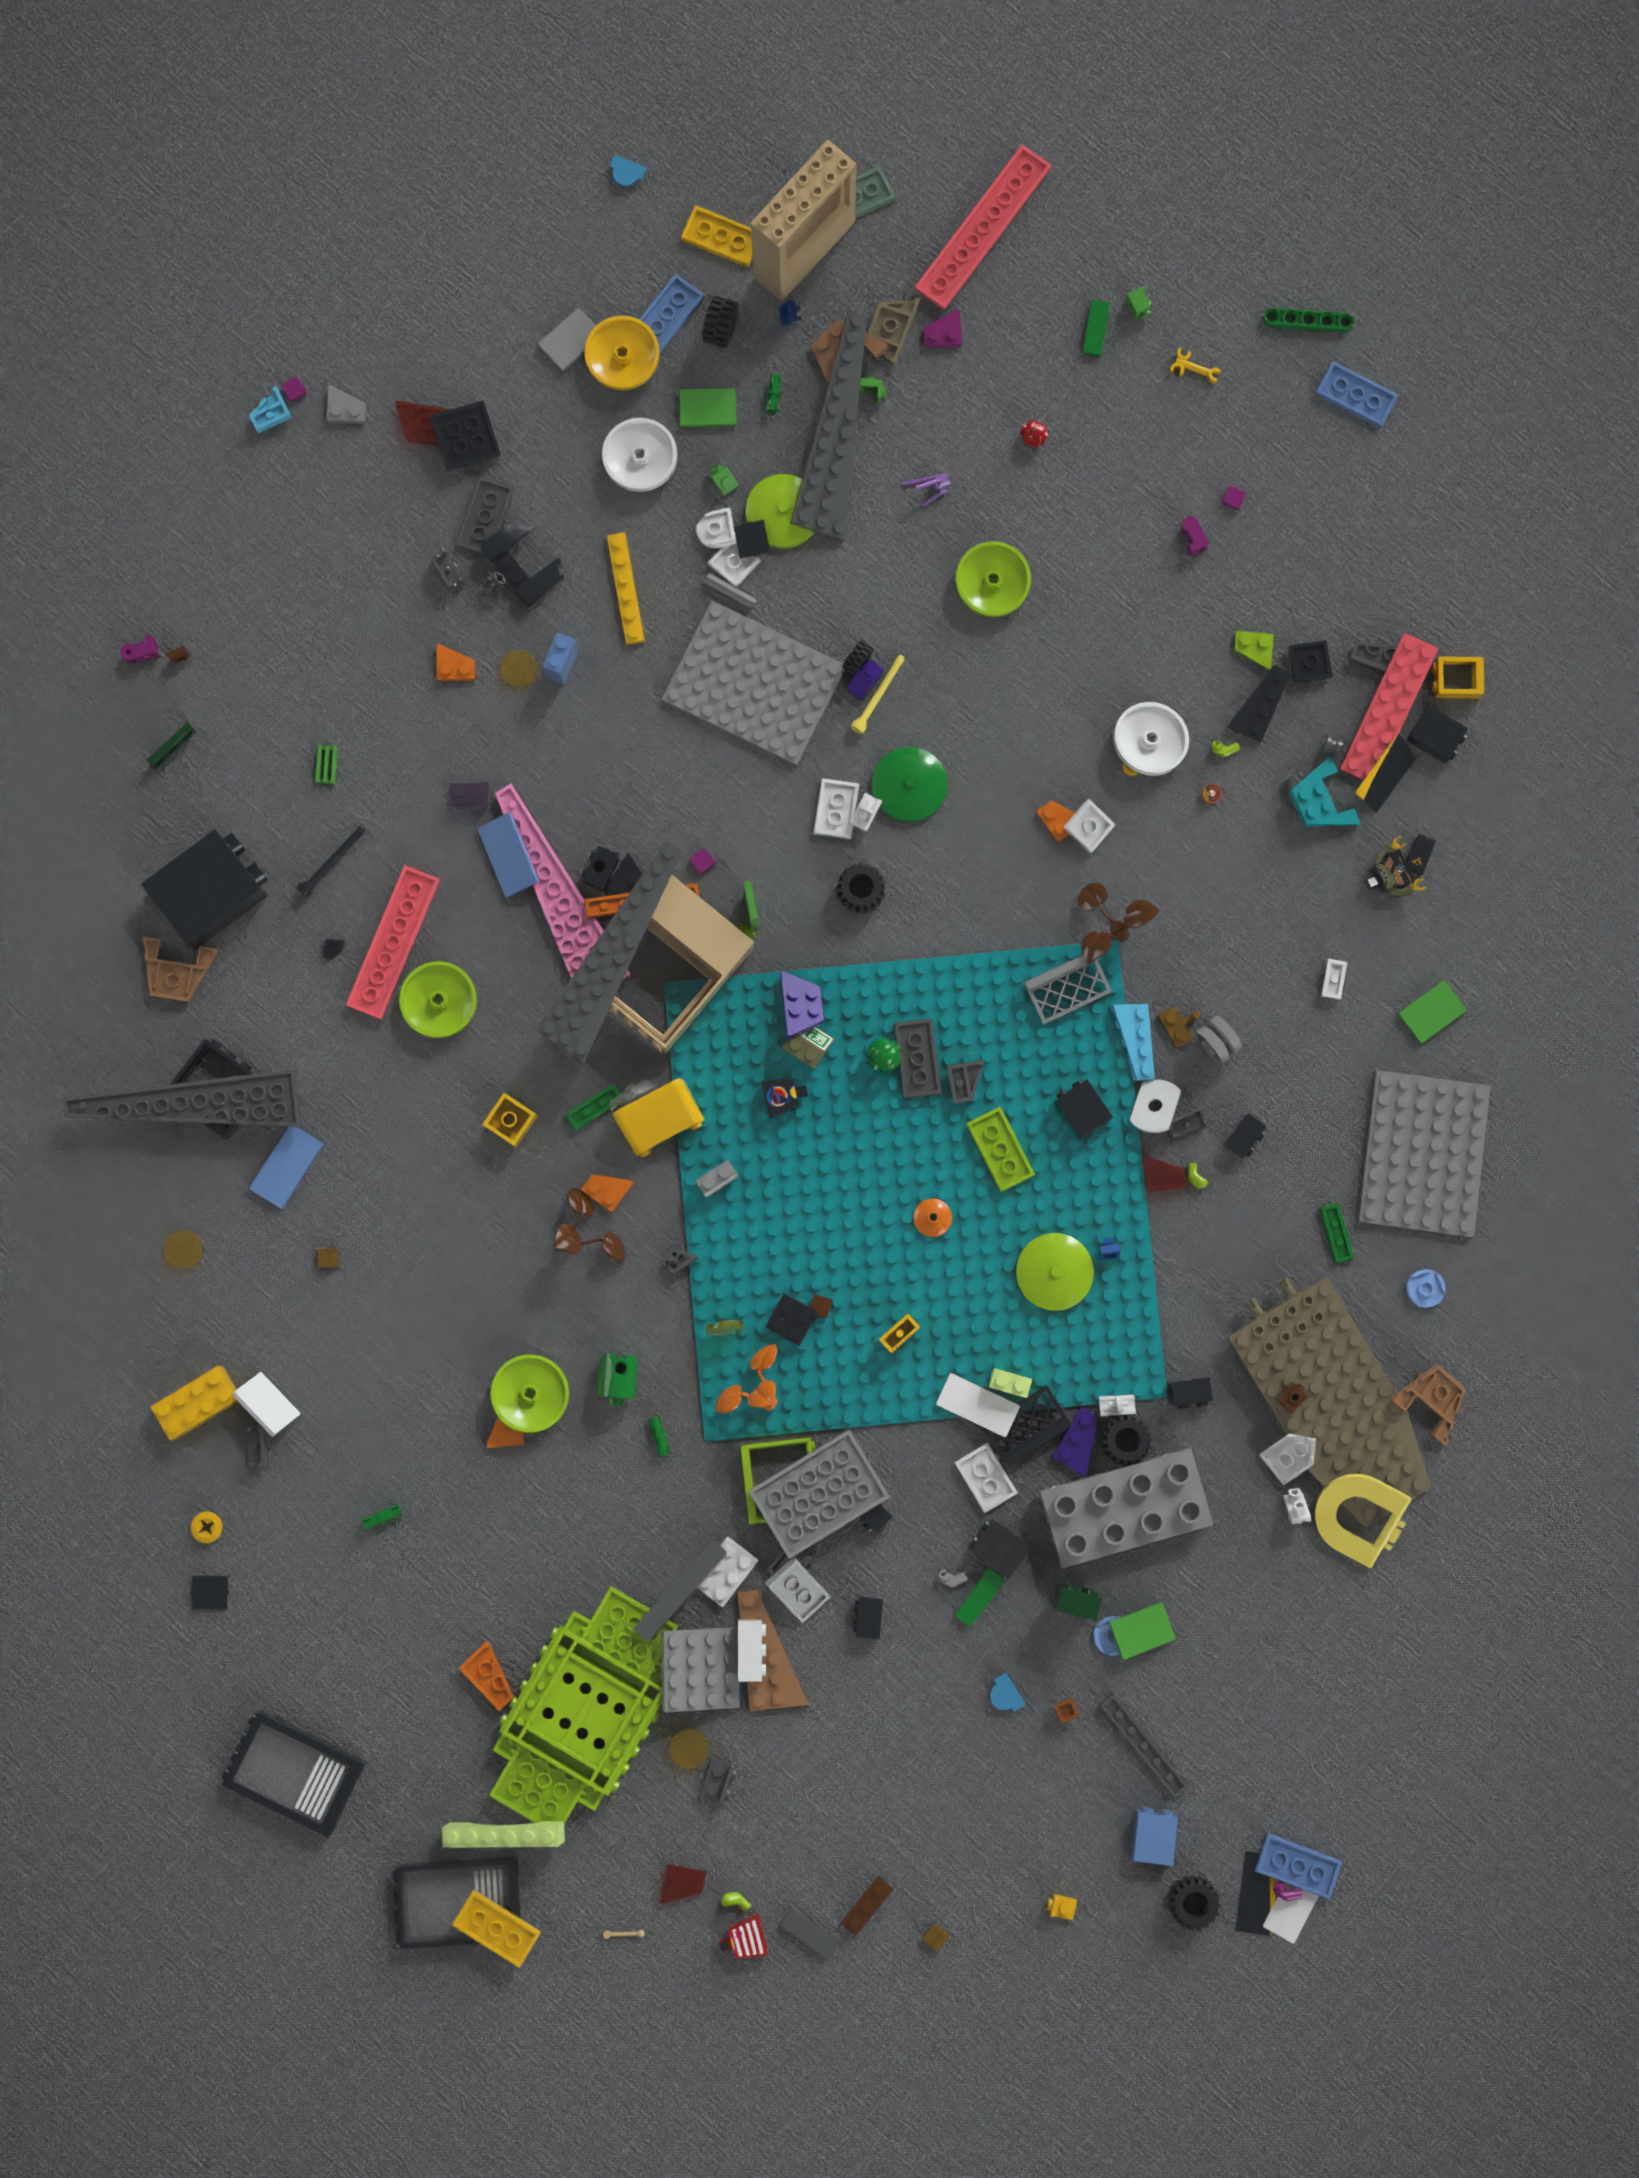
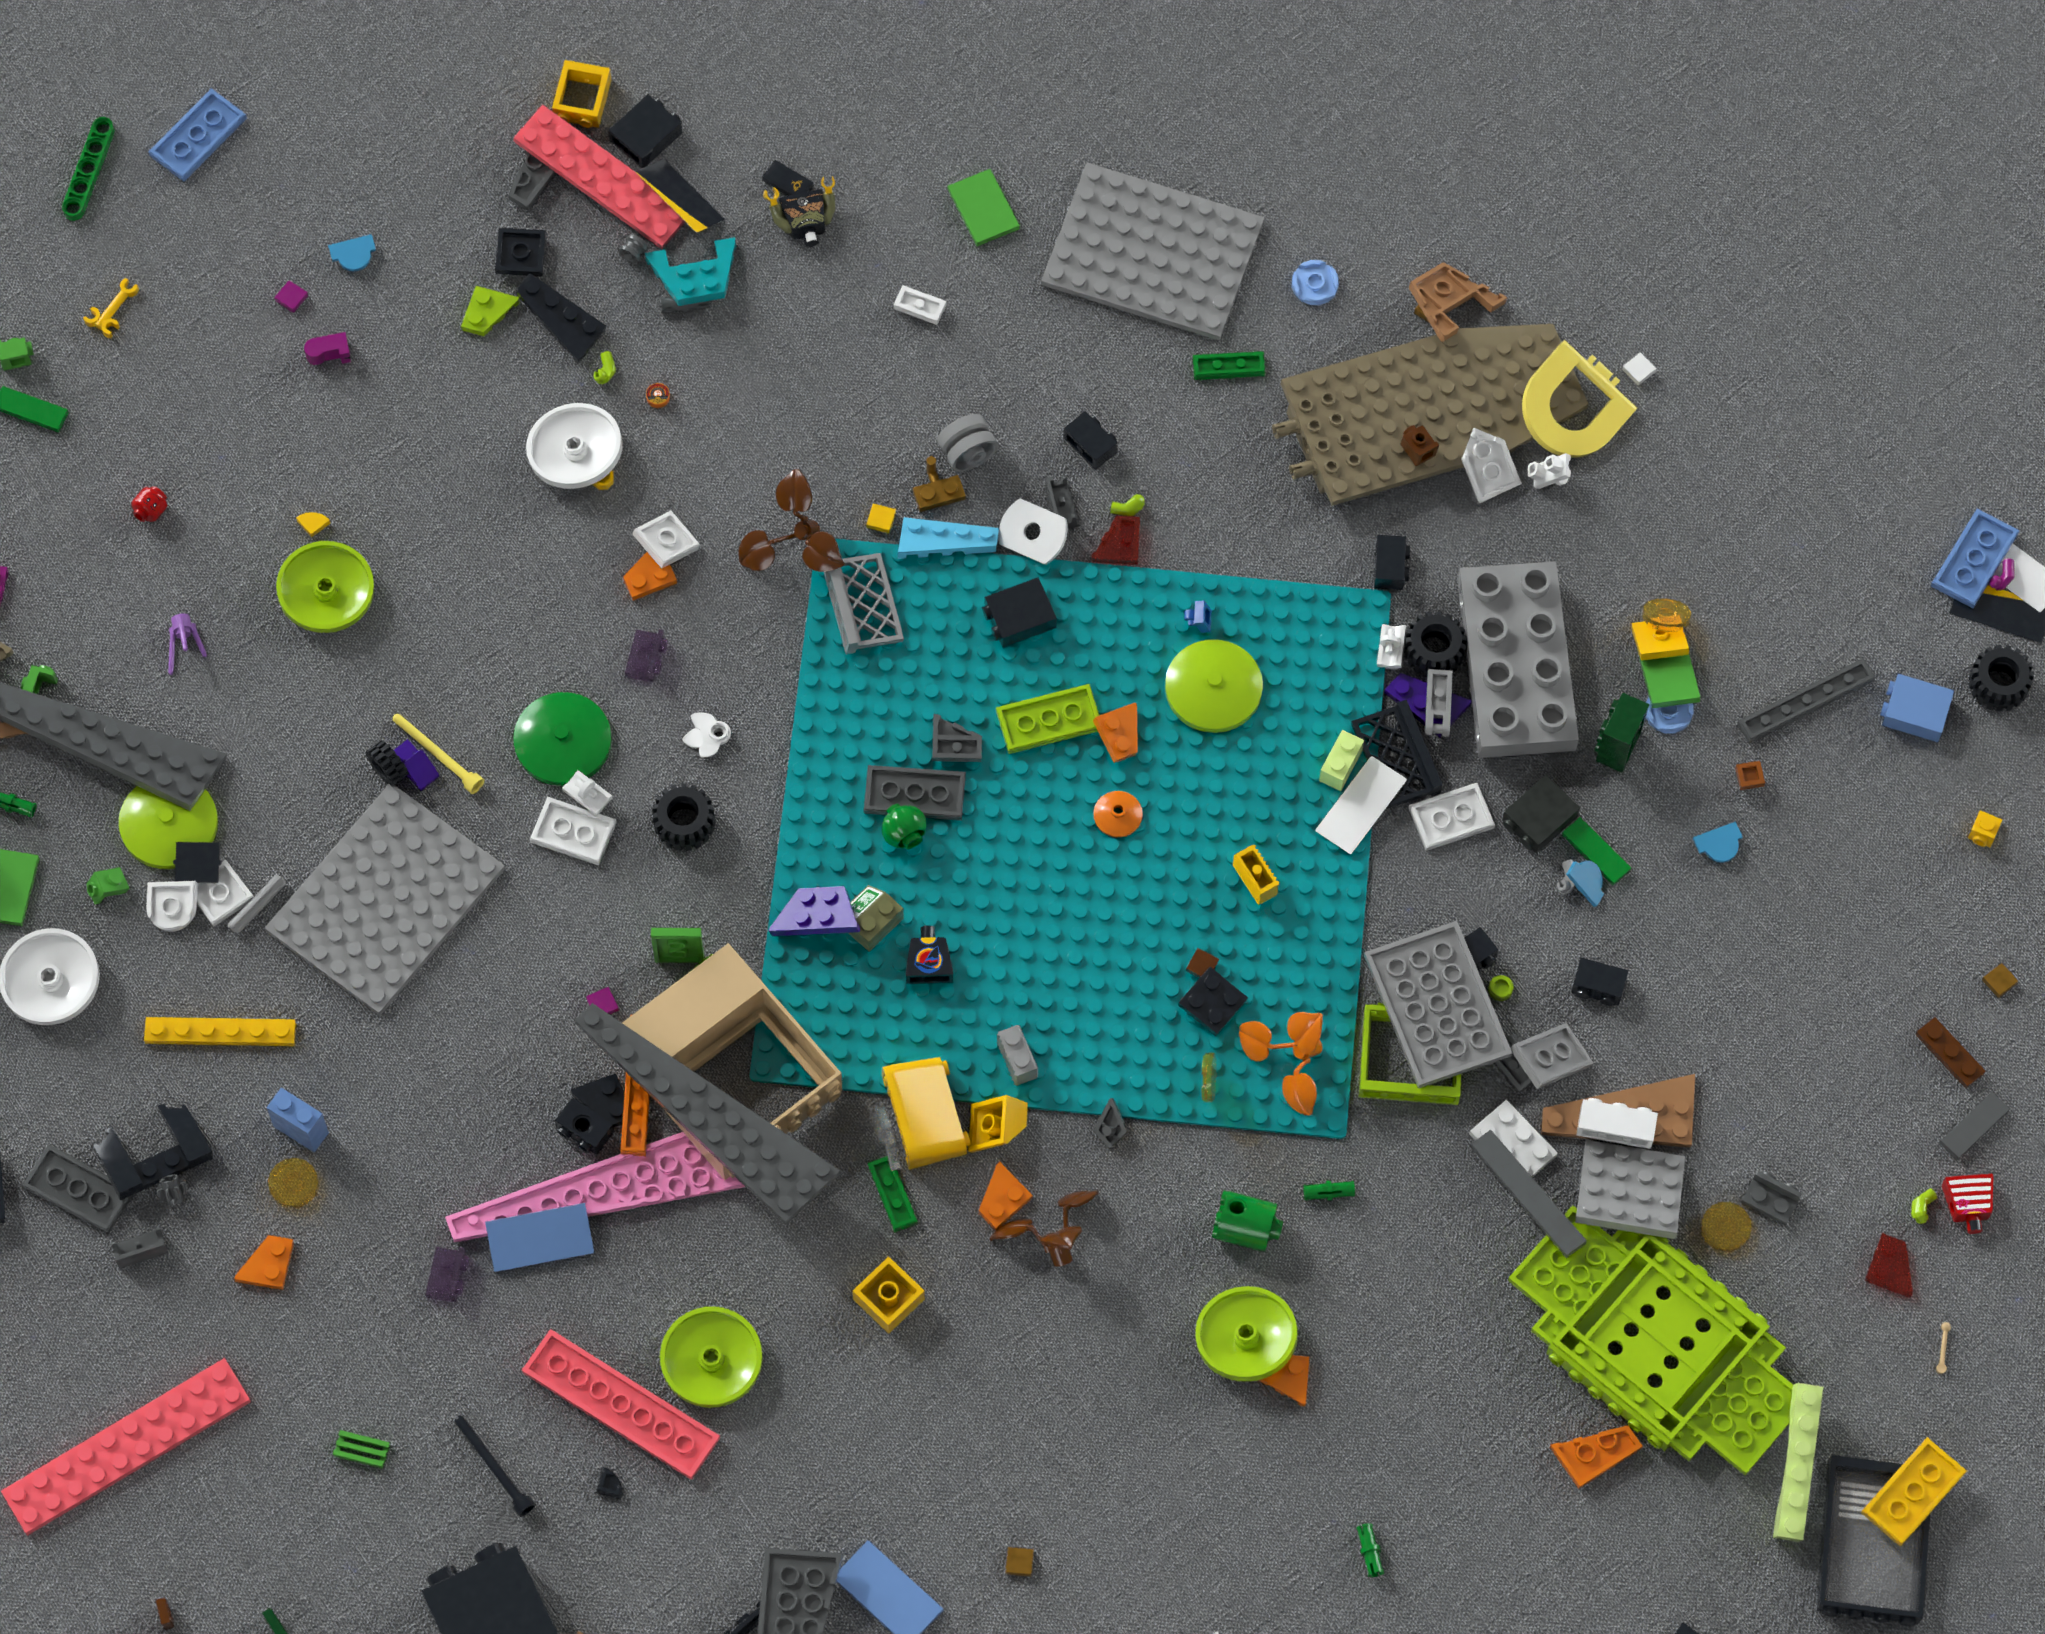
camera: 75 degrees left, 15 degrees down
(299, 598) = (125, 1446): none -> coral plate
(661, 1174) = (996, 1122): none -> yellow slope
(850, 1540) = (1500, 988): none -> lime tile
(934, 889) = (703, 734): none -> white plate
(951, 1594) = (1587, 880): none -> dark azure piece
(990, 831) = (645, 655): none -> clear purple bracket
(999, 1206) = (1119, 732): none -> orange wing
(1047, 558) = (313, 522): none -> yellow tile
(1075, 1451) = (1438, 701): none -> light grey plate
(1144, 986) = (881, 518): none -> yellow tile
(1169, 1619) = (1658, 644): none -> yellow plate
(1191, 1621) = (1666, 614): none -> clear yellow tile
(1280, 535) = (353, 253): none -> dark azure piece
(1406, 1564) = (1639, 368): none -> white tile

